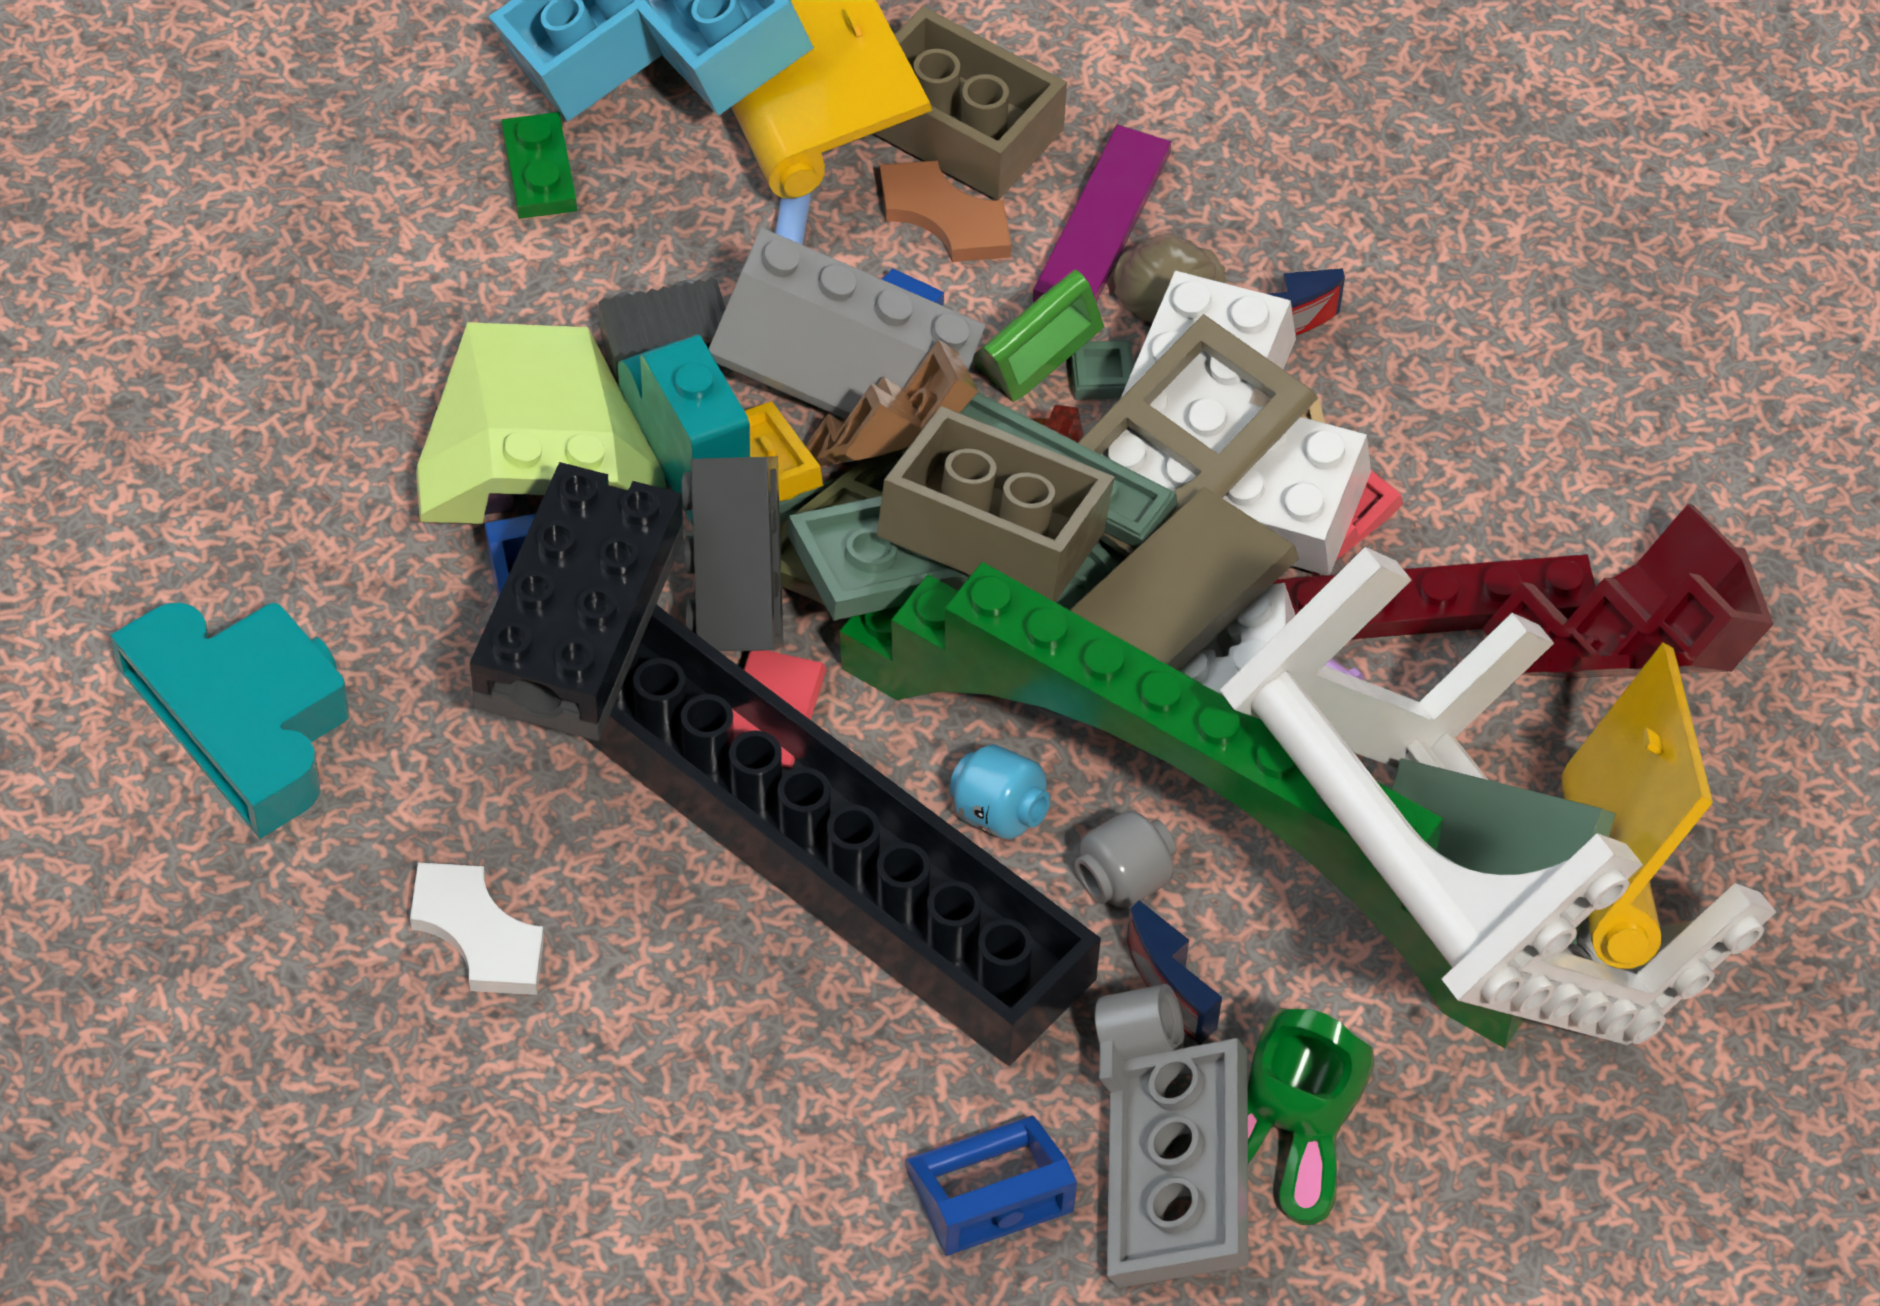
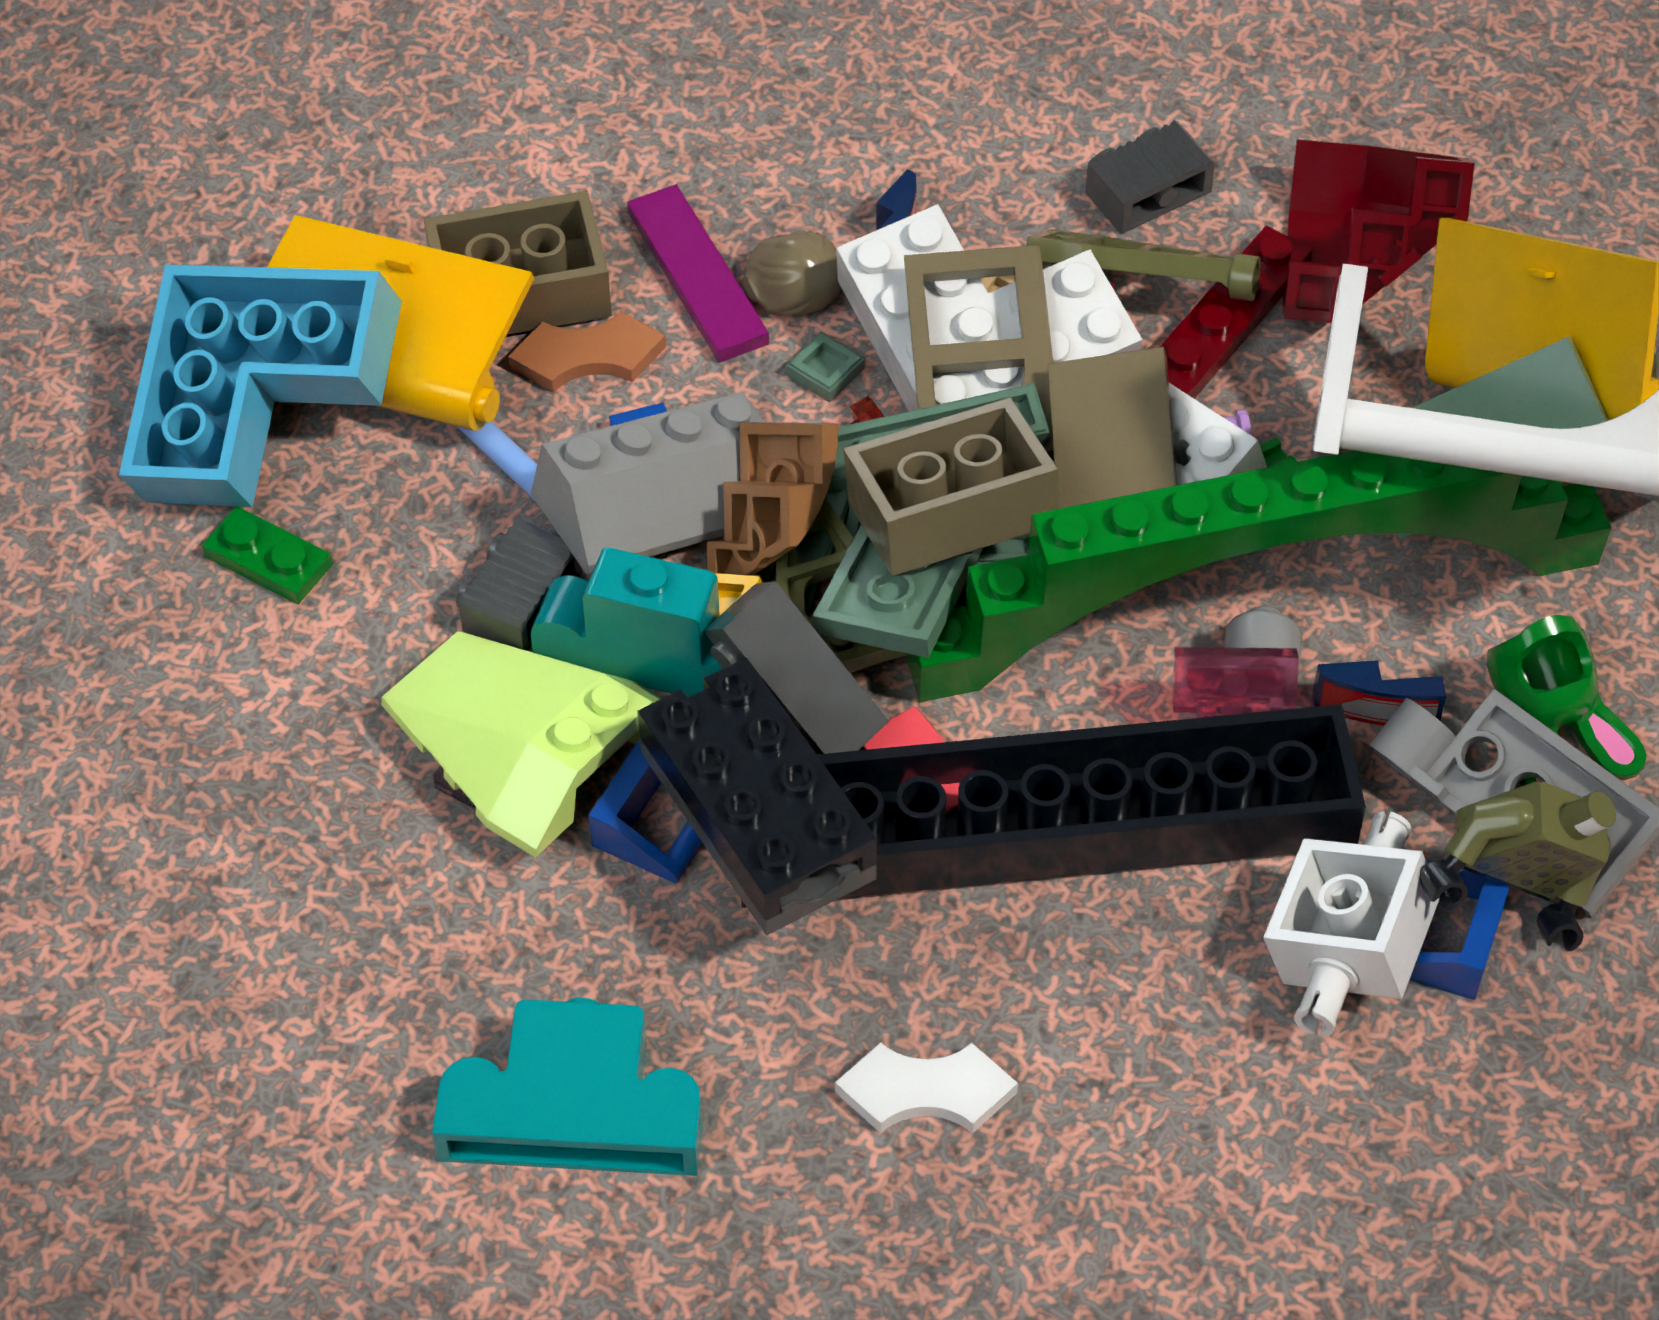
camera: 45 degrees left, 0 degrees up
(903, 1098) = (1350, 921): none -> white brick
(1000, 791) = (1133, 682): medium azure head -> none
(1041, 337) = (772, 360): bright green tile -> none
(1053, 851) = (1234, 680): none -> clear pink plate
(1085, 1161) = (1532, 842): none -> olive torso
(1400, 444) = (1236, 273): none -> olive plate
(1545, 438) = (1149, 176): none -> dark grey brick

